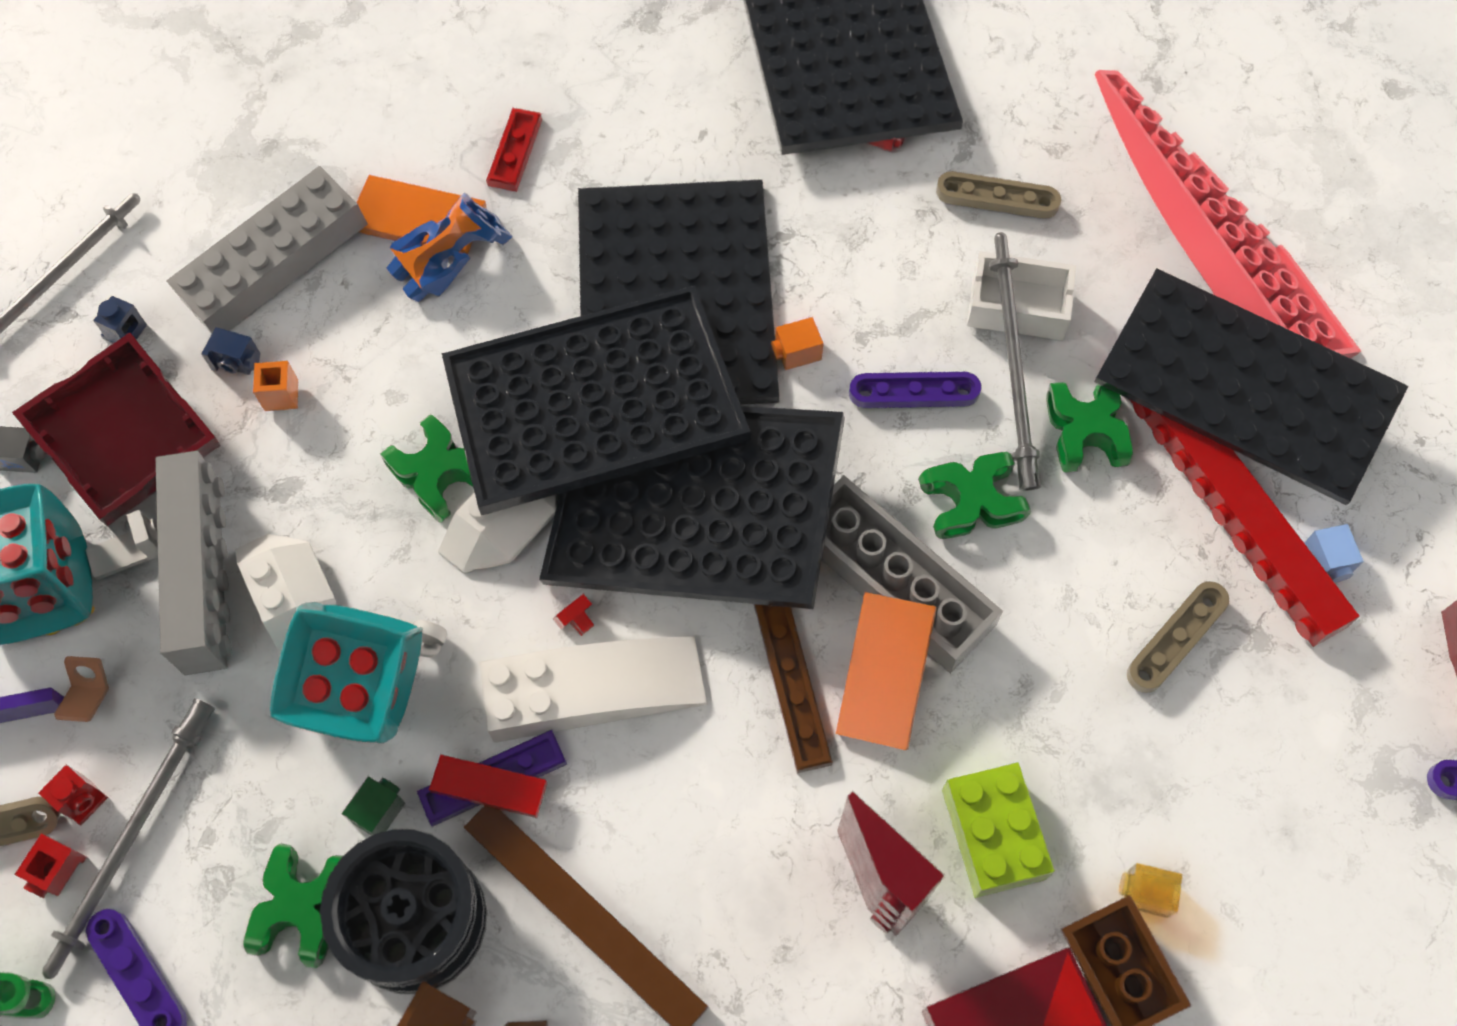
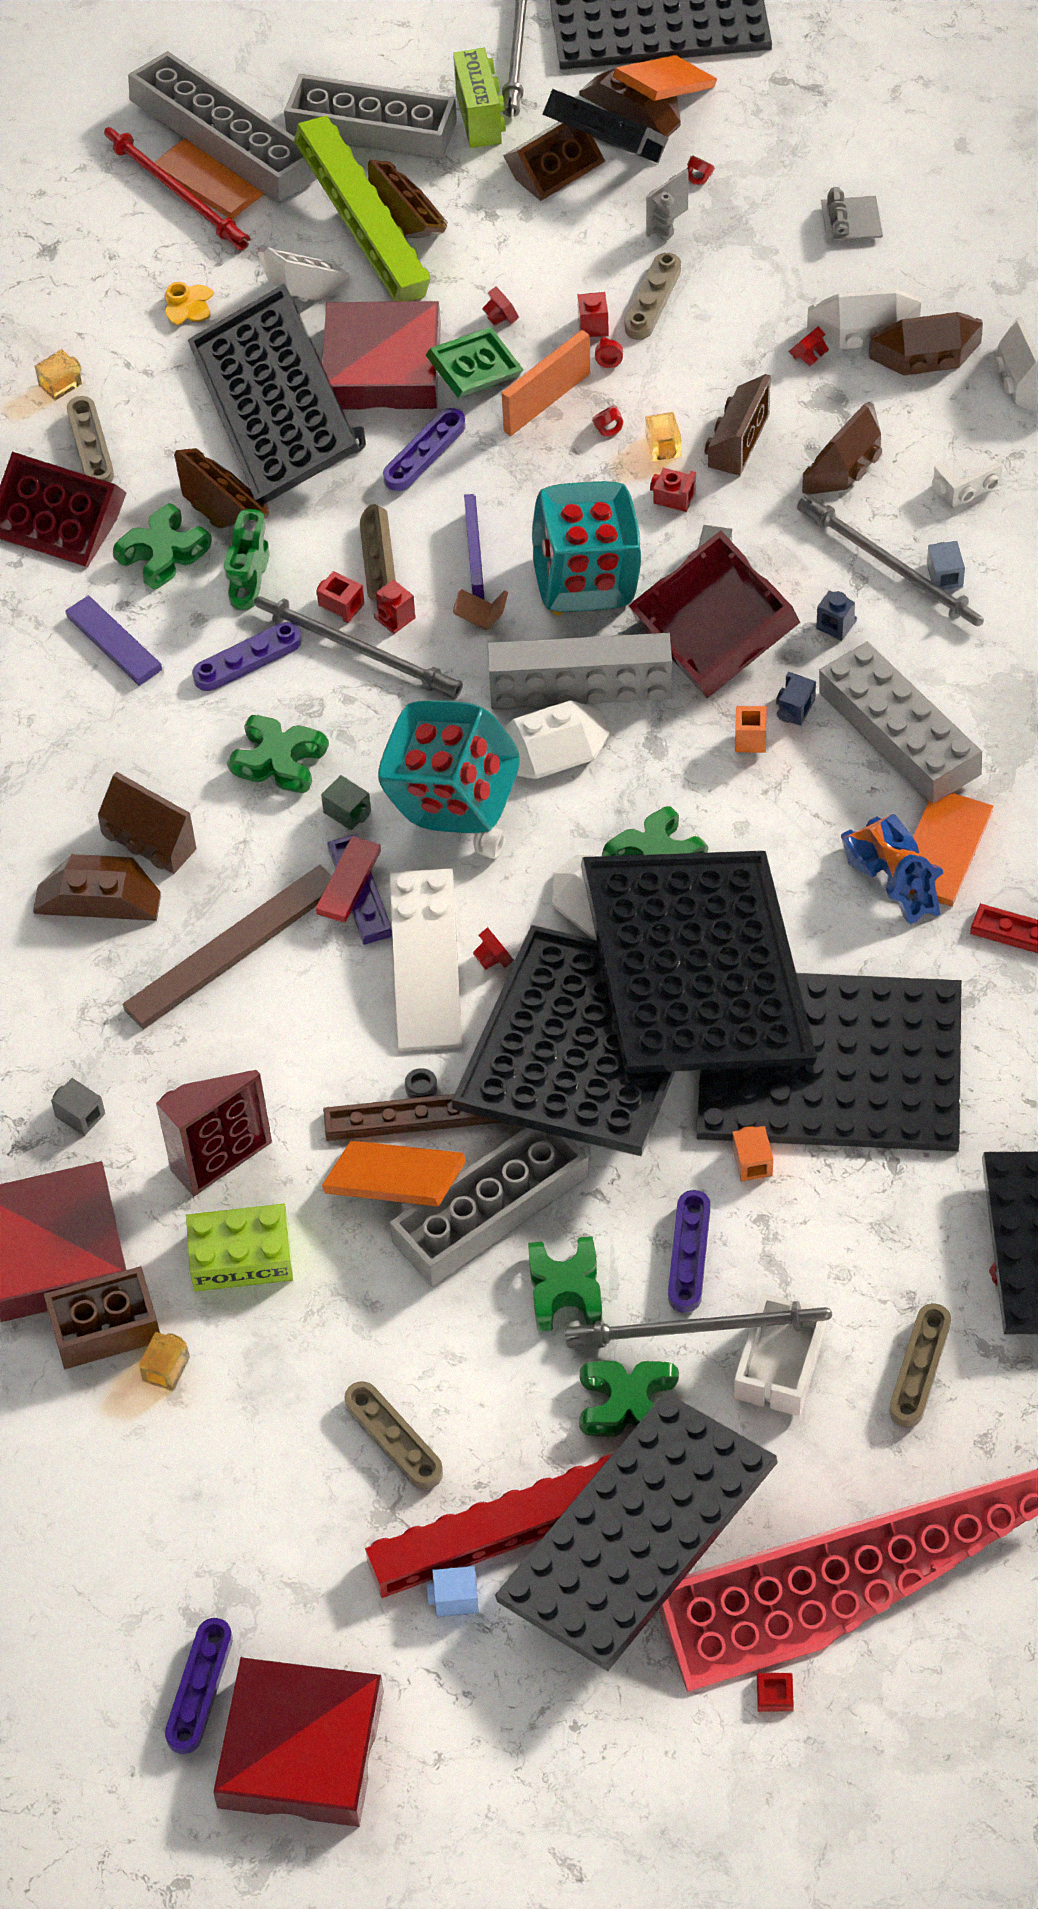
camera: 100 degrees right, 10 degrees down
(56, 229) = (946, 565): none -> sand blue brick
(127, 549) = (604, 622): white bracket -> none
(403, 911) = (250, 813): black wheel -> none
(750, 672) = (420, 1083): none -> black tile
(1340, 284) = (774, 1692): none -> red tile

